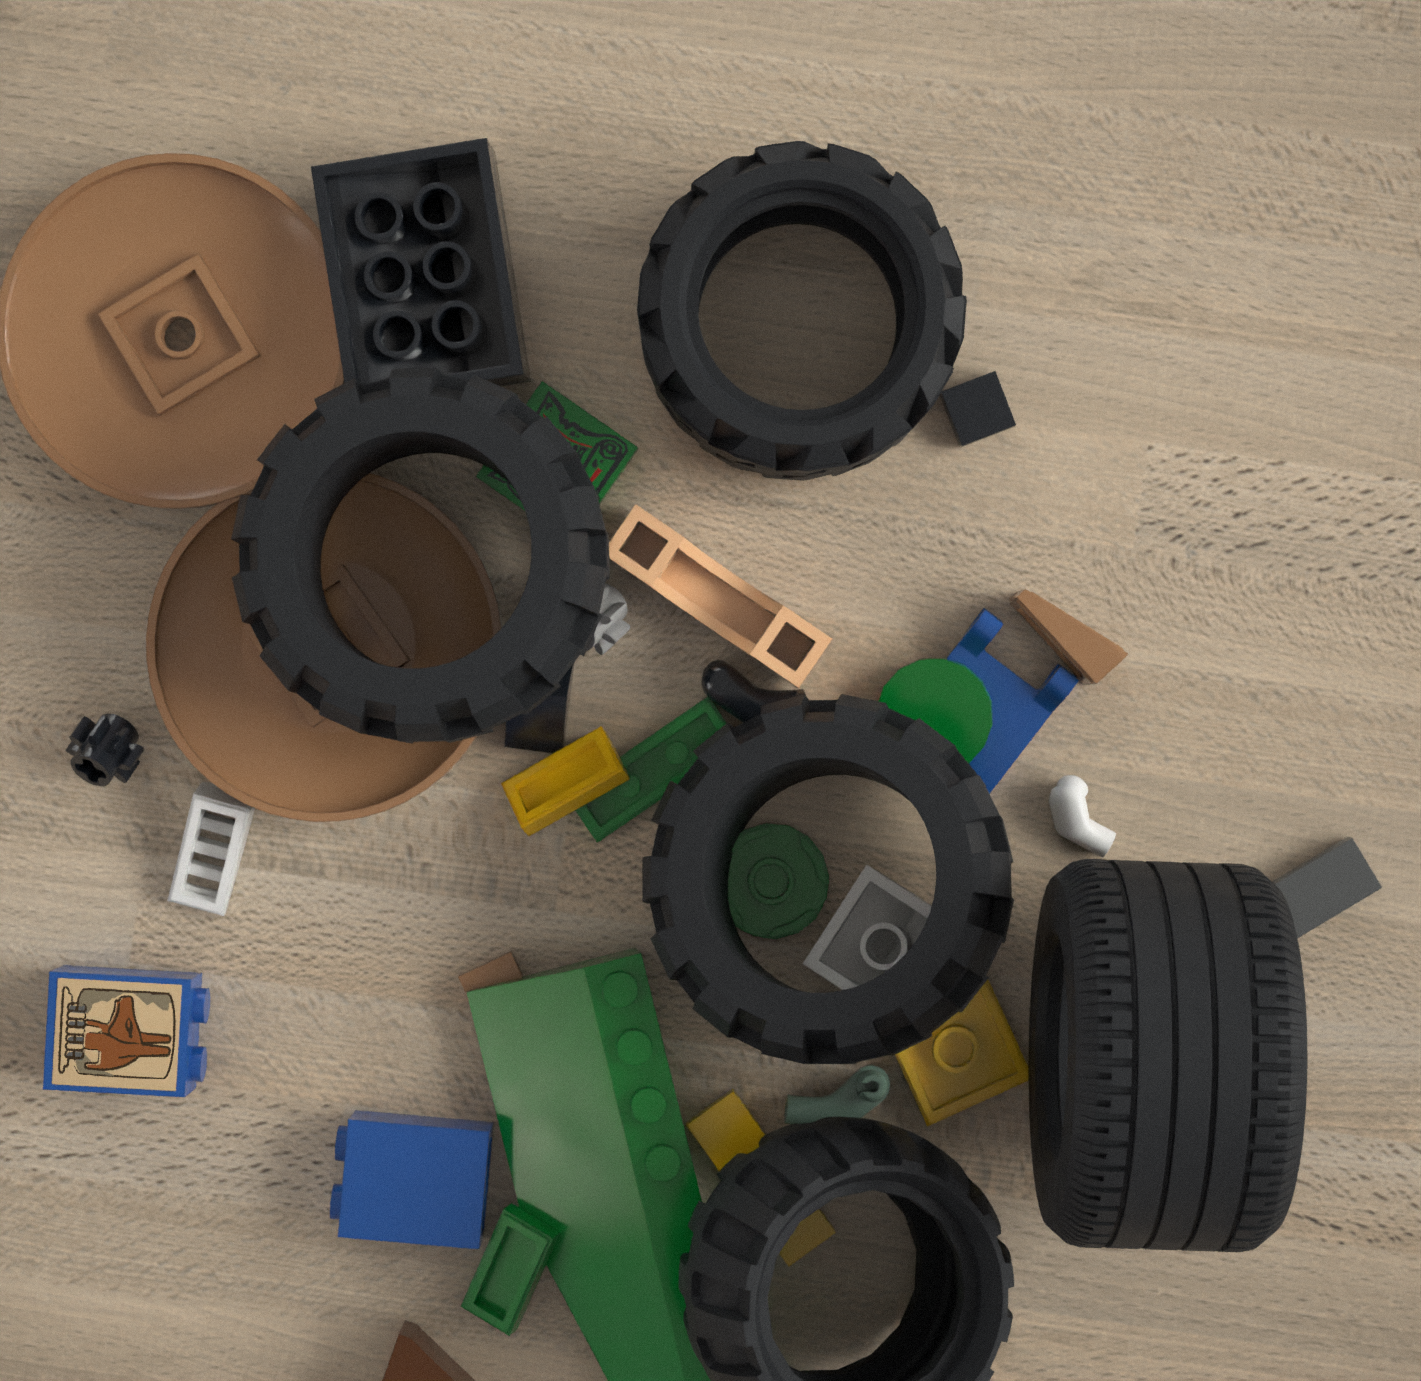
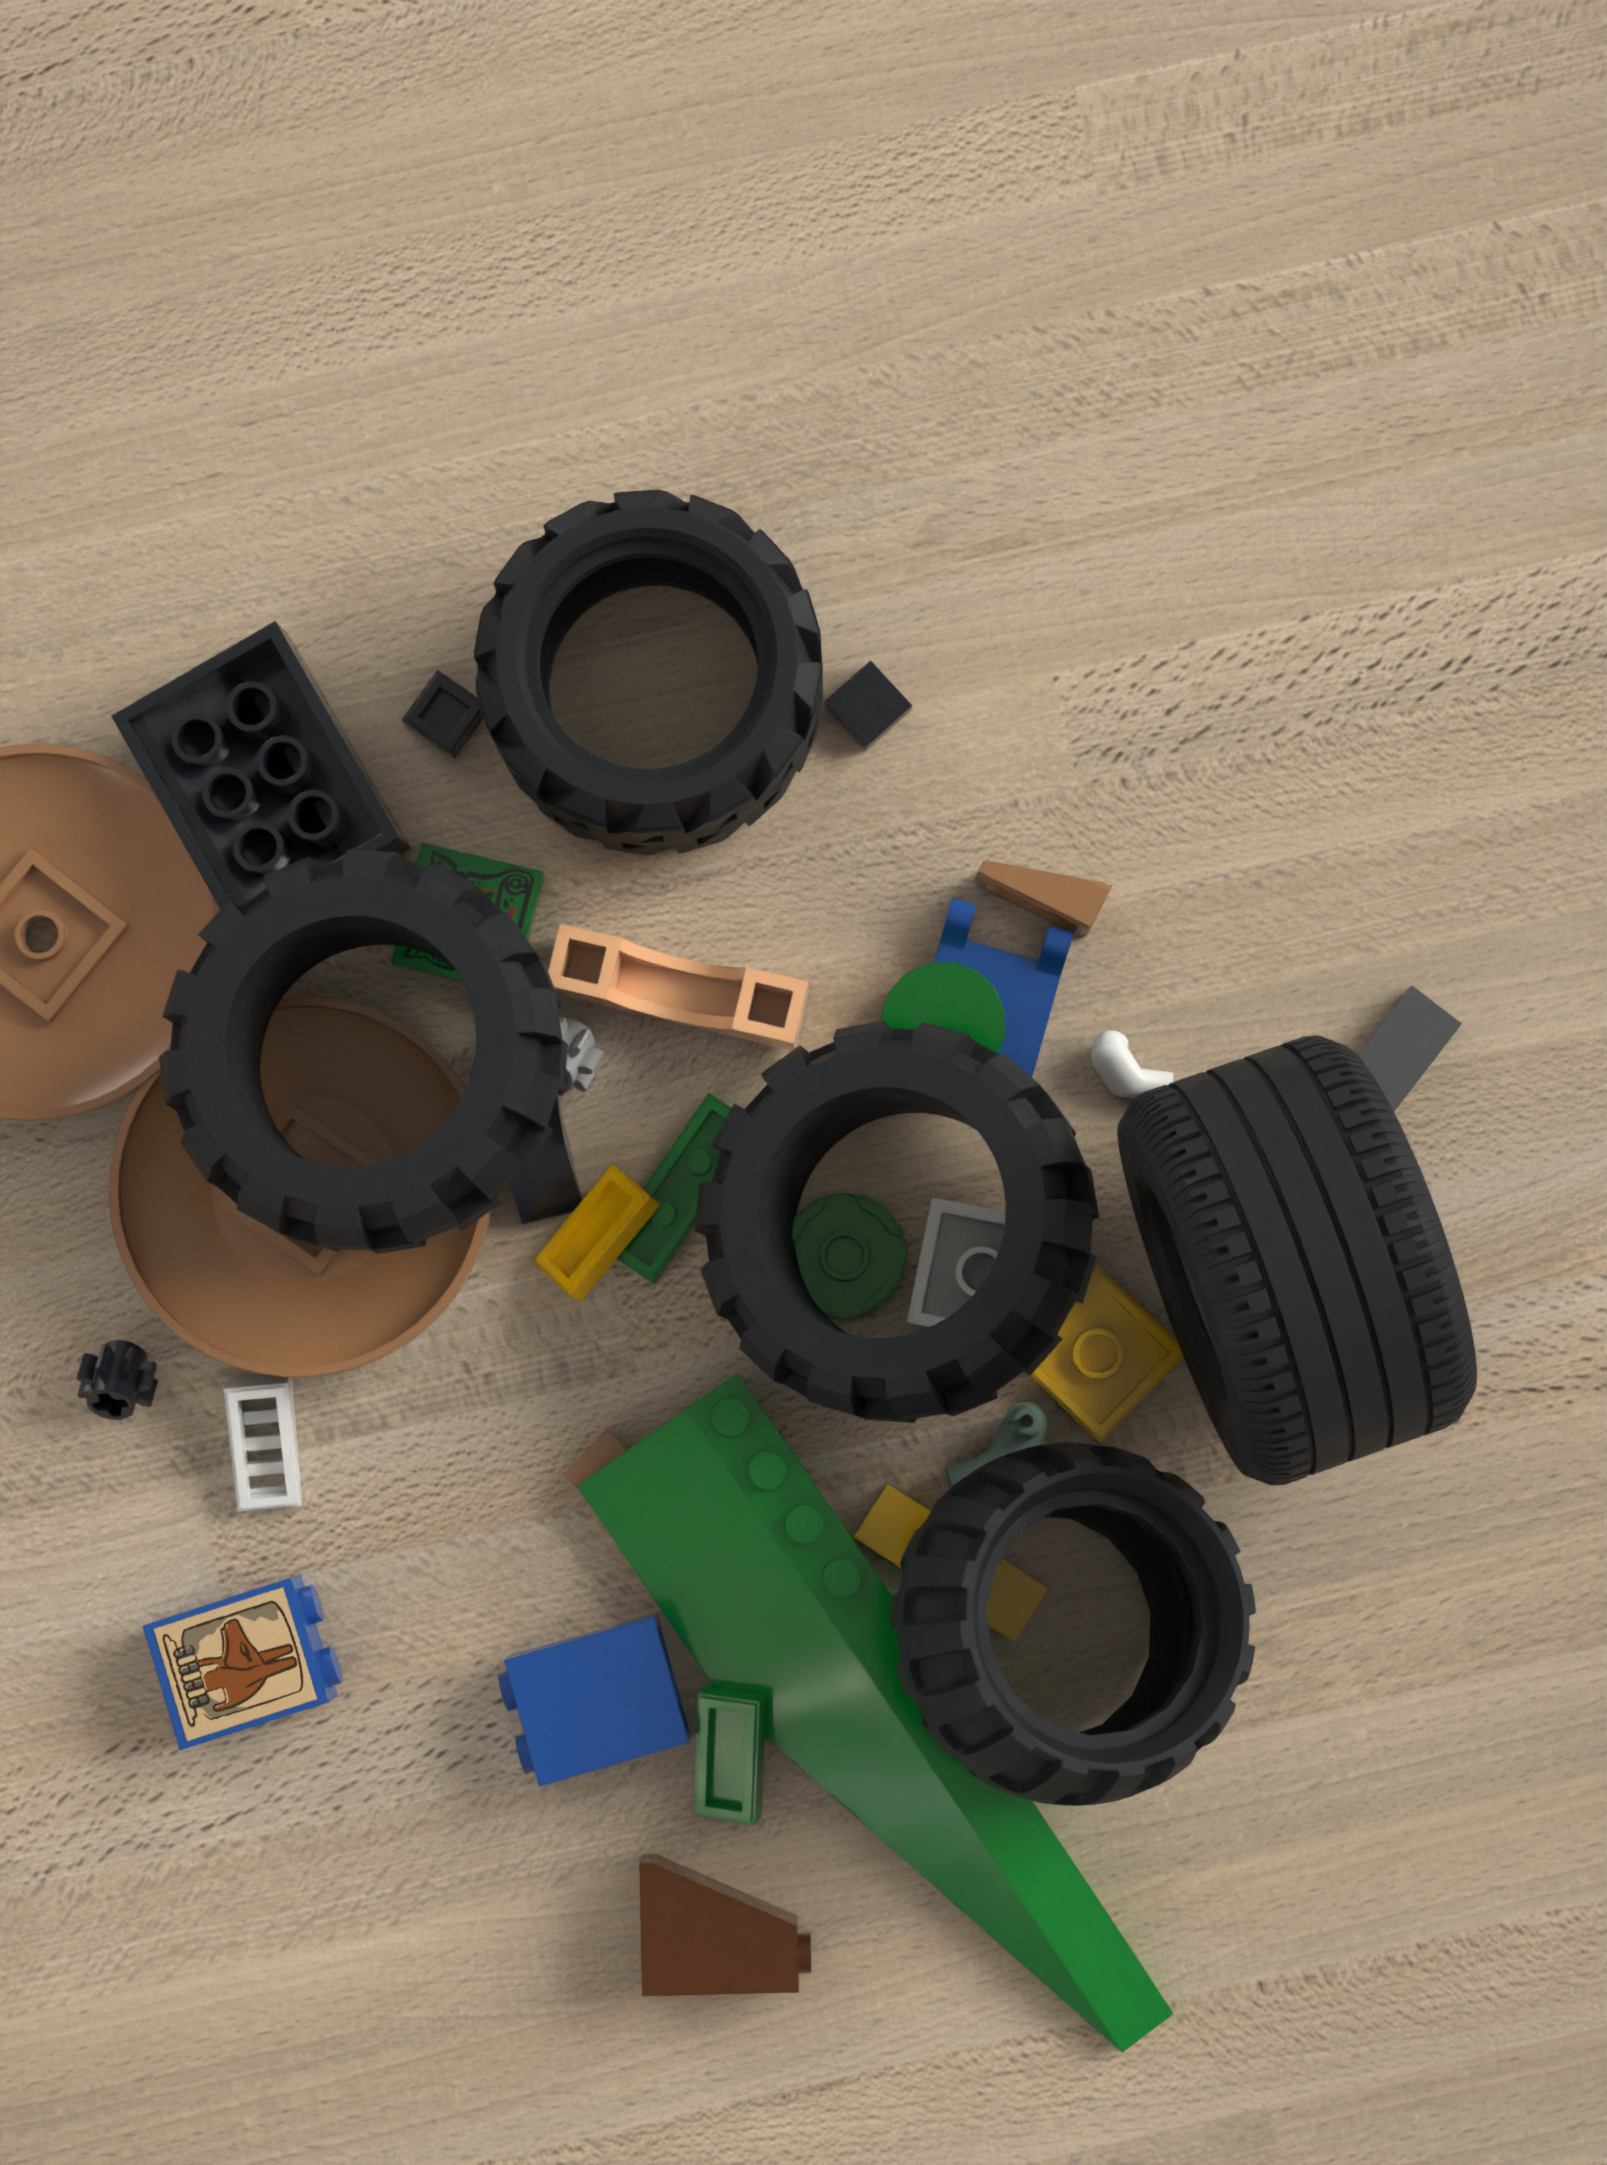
camera: 20 degrees left, 5 degrees down
(604, 273) = (444, 714): none -> black tile
(736, 693) = (729, 1076): black arm -> none

